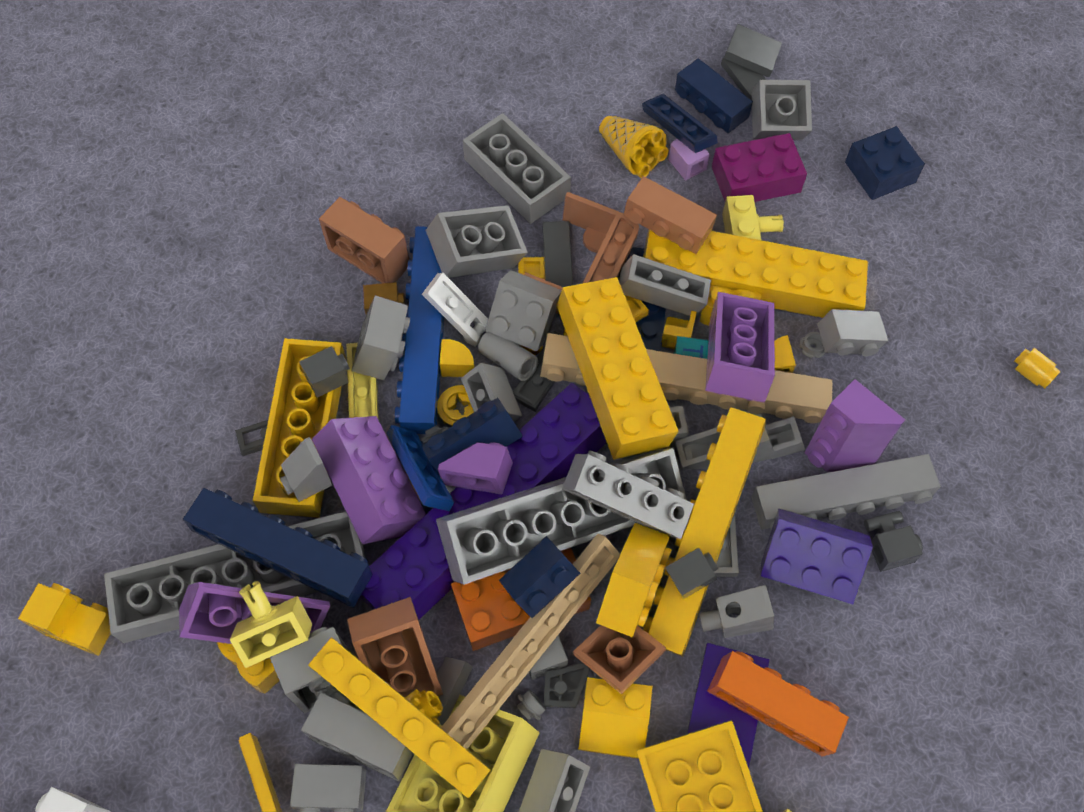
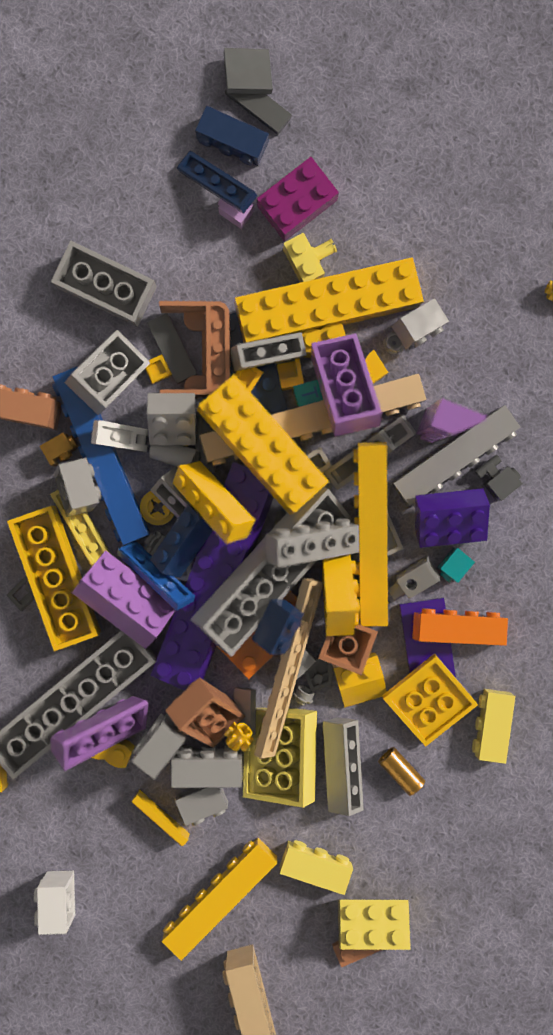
camera: 25 degrees left, 25 degrees up
(270, 627) = (120, 744): light yellow brick -> none
(279, 546) = (91, 679): dark blue brick -> none
(304, 471) = (82, 622): light grey slope -> none
(325, 371) = (53, 538): dark grey brick -> none
(399, 717) = (229, 756): yellow plate -> none
(455, 359) = (137, 473): yellow brick -> none
(478, 468) = (201, 563): medium lavender slope -> none
(529, 405) = (213, 502): none -> yellow brick
(635, 143) = (187, 217): yellow cone -> none
(669, 215) = (250, 295): nougat brick -> none
(692, 572) = (376, 576): dark grey brick -> none
(781, 108) = (295, 132): light grey brick -> none
(799, 622) = (455, 565): none -> teal brick
(884, 162) = (395, 147): dark blue brick -> none

